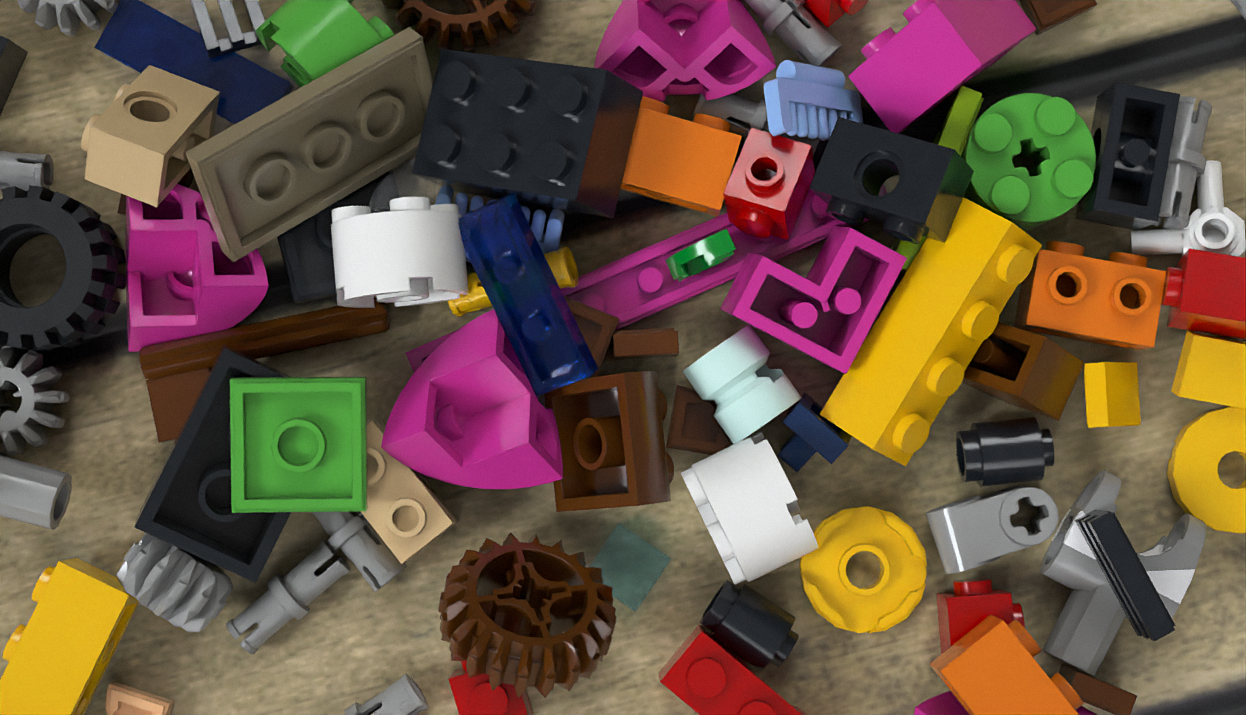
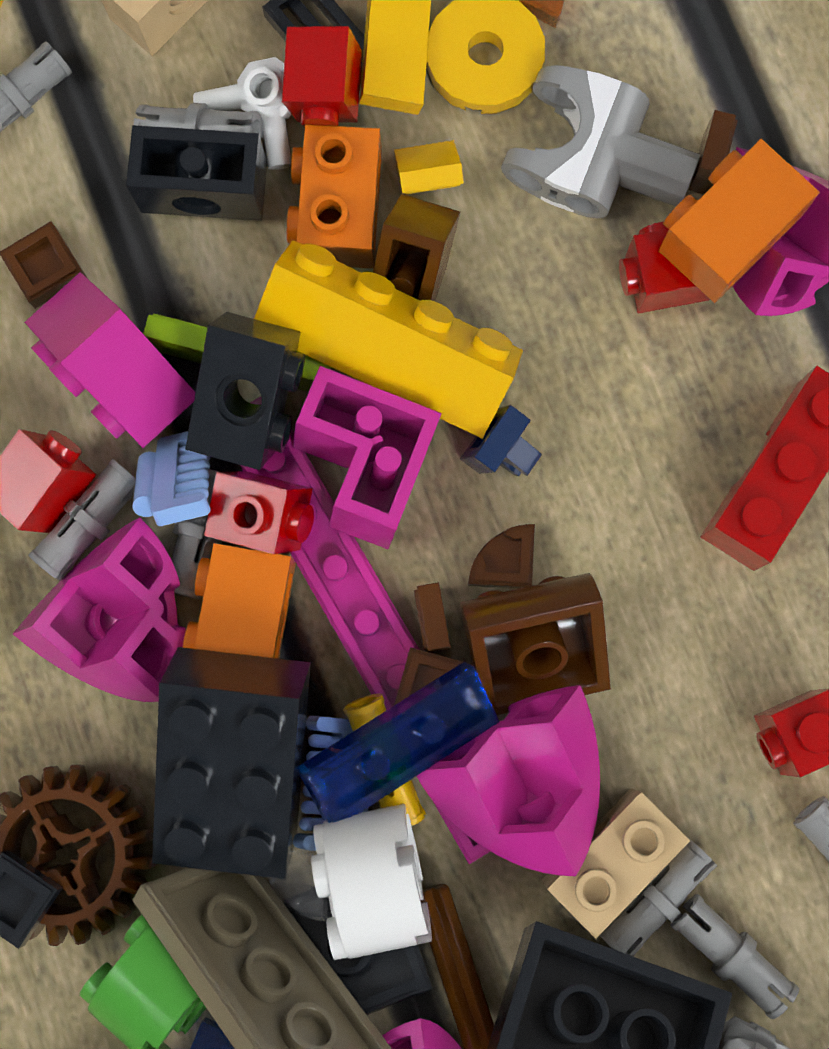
camera: 90 degrees left, 5 degrees down
(298, 444) = (585, 965): bright green tile -> none
(509, 613) = (744, 717): reddish brown gear -> none
(629, 566) = (654, 613): clear light blue tile -> none
(701, 256) = (338, 571): green tile -> none
(741, 384) = (462, 517): light aqua wheel -> none
(749, 509) = (582, 491): white brick -> none
(750, 625) = (697, 484): black brick -> none
(900, 578) = (620, 419): yellow tile -> none
(980, 527) = (573, 274): light grey piece -> none
(1004, 452) = (496, 261): black brick -> none
(1055, 141) = (199, 238): bright green brick -> none
(1126, 574) = (603, 127): black tile -> none

